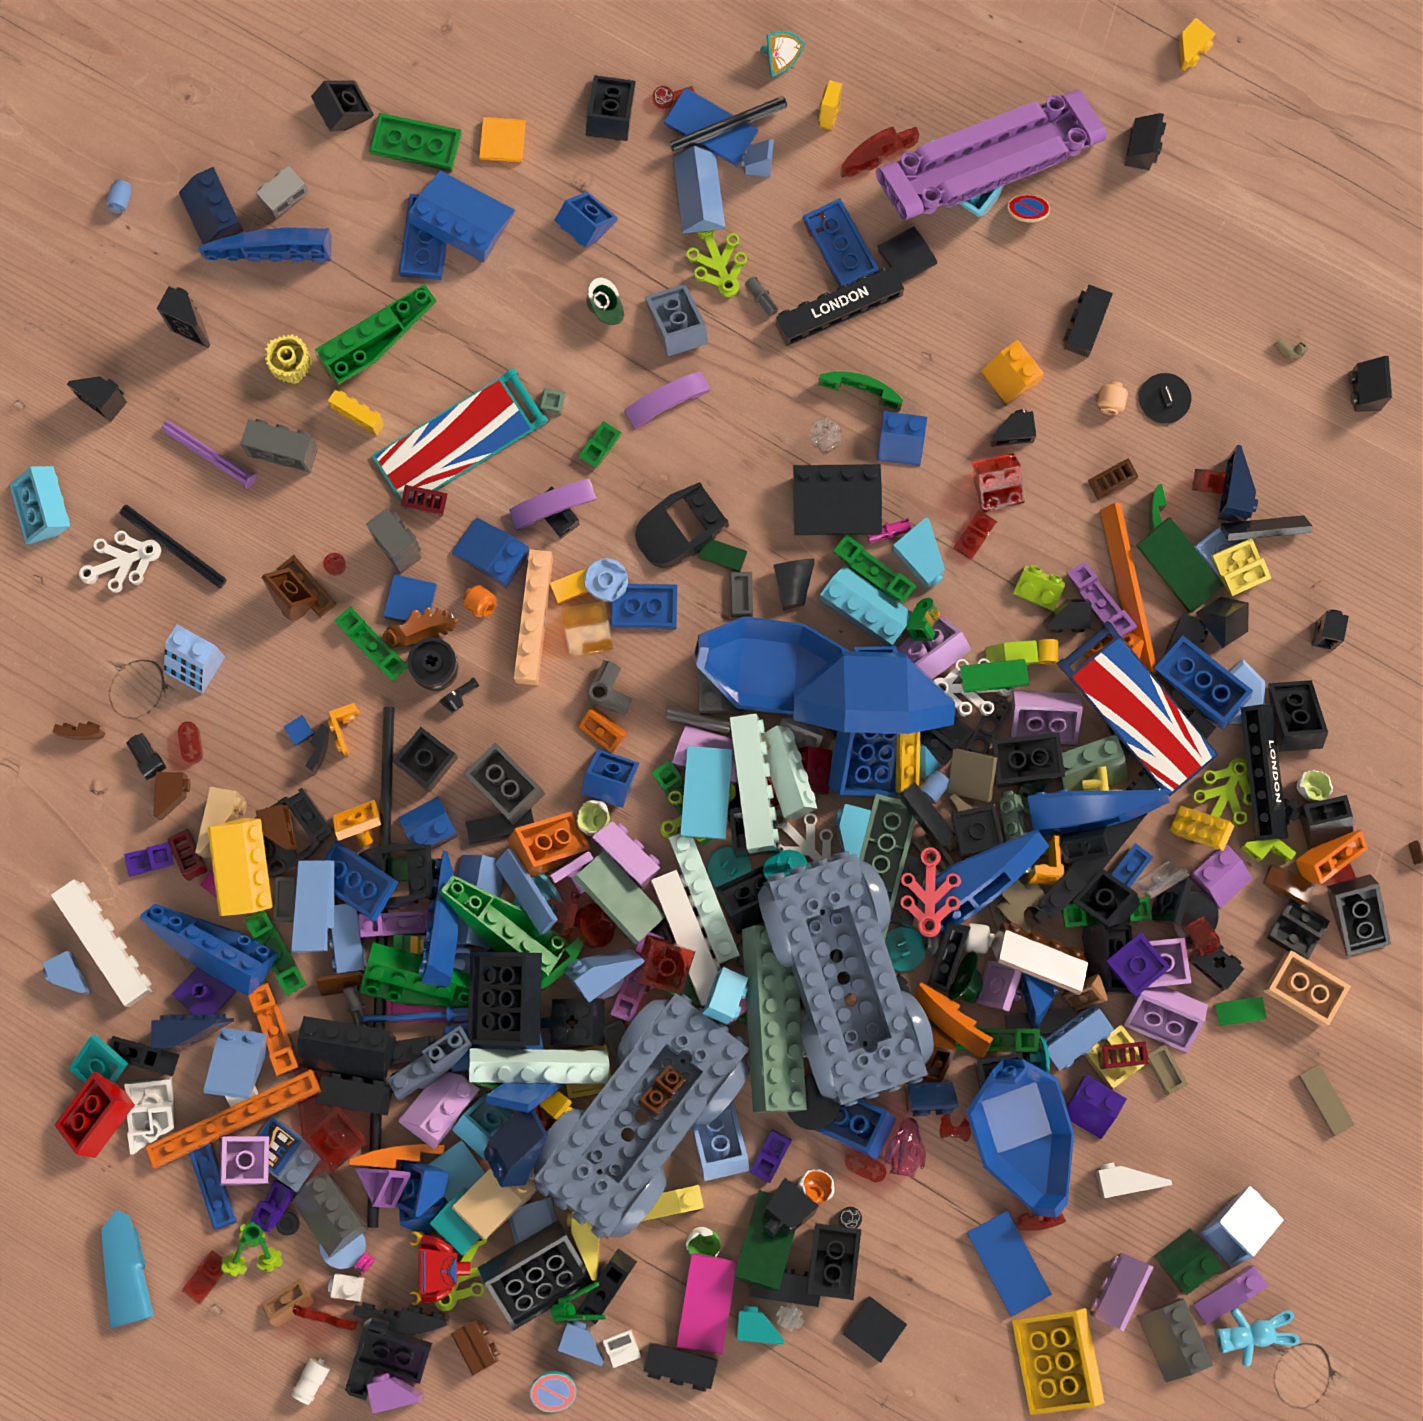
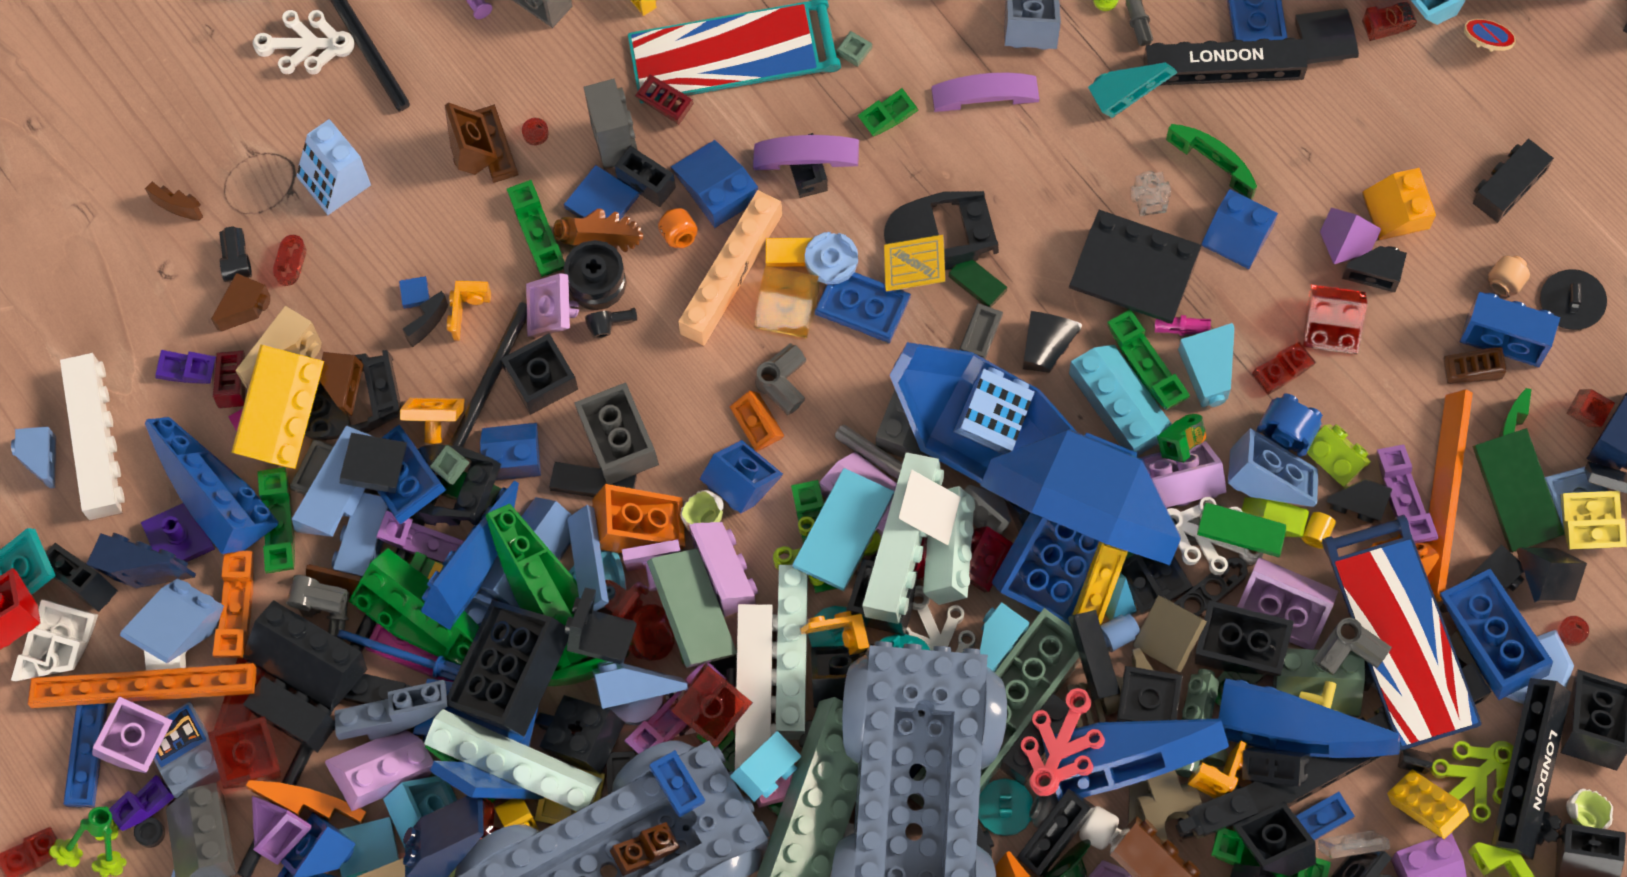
camera: 25 degrees right, 10 degrees down
(329, 1001) = (312, 597): none -> dark grey piece
(333, 882) = (373, 463): none -> black tile
(392, 861) = (449, 464): none -> sand green tile
(409, 703) = (549, 305): none -> lavender tile
(437, 570) = (645, 176): none -> black brick
(562, 946) = (598, 633): none -> black bracket
(668, 1037) = (677, 783): none -> blue plate
(671, 560) = (914, 263): none -> yellow sticker
(744, 864) = (854, 630): none -> light orange bracket
(765, 753) = (929, 507): none -> white sticker
(770, 360) = (1122, 88): none -> teal slope
(780, 656) = (995, 411): none -> light blue slope
(949, 224) = (1388, 20): none -> clear red leg
(983, 413) = (1347, 235): none -> medium lavender slope
(998, 580) = (1290, 424): none -> blue brick
(998, 622) = (1271, 472): none -> medium blue slope
(1115, 731) = (1337, 647): none -> dark grey piece
(1131, 440) = (1519, 330): none -> blue brick
(1181, 797) = (1416, 760): none -> black slope
(1255, 655) = (1573, 630): none -> clear red tile

